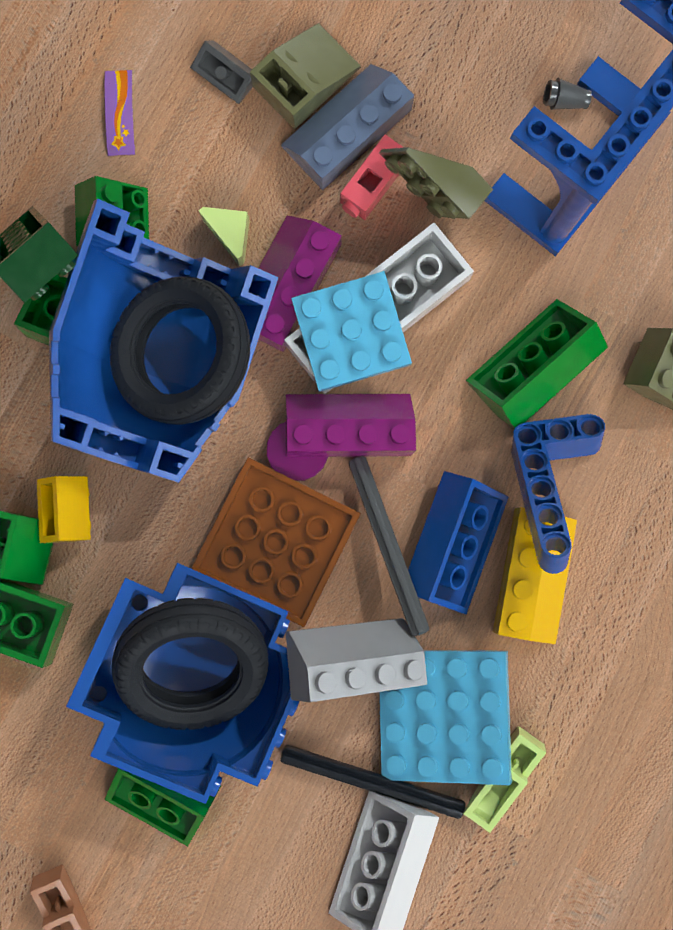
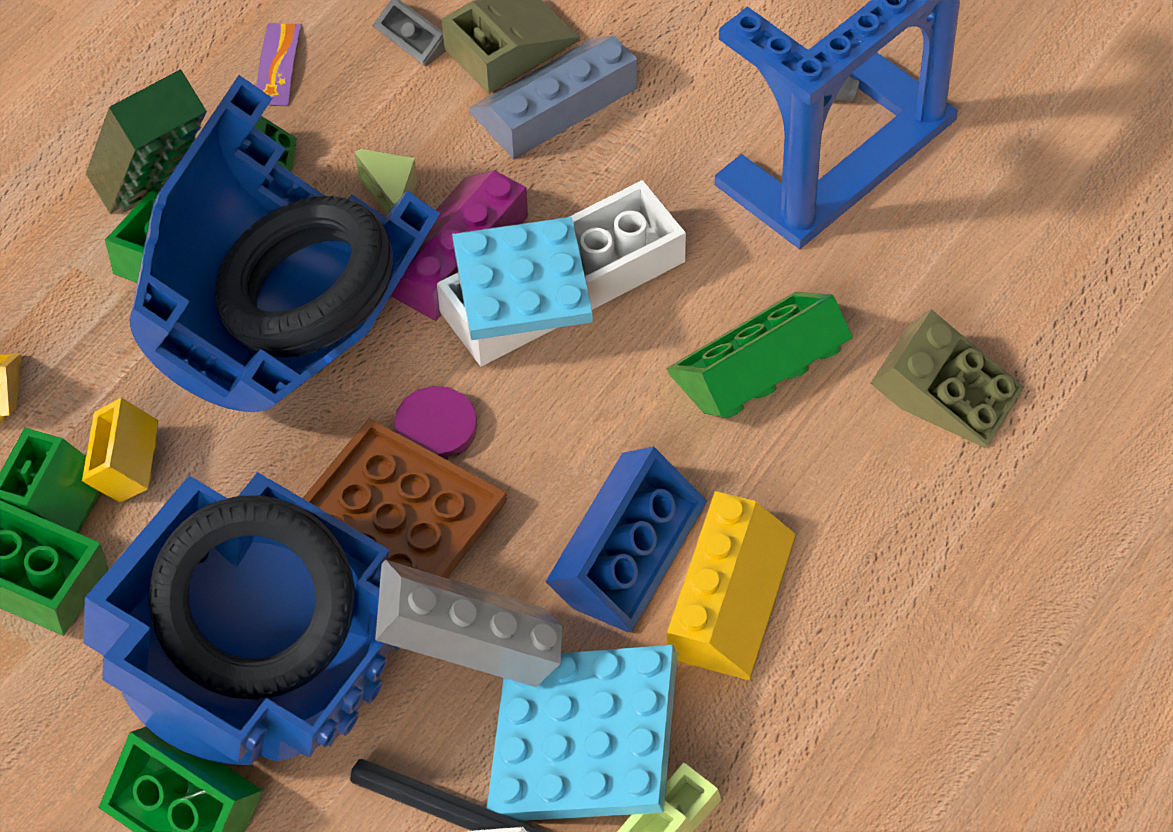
camera: 10 degrees right, 30 degrees down
(350, 425) = (504, 400): magenta slope -> none
(369, 182) = (578, 144): coral brick -> none
(389, 546) = (536, 526): dark grey axle -> none
(446, 185) = (650, 134): olive slope -> none
(551, 441) = (758, 433): blue beam -> none

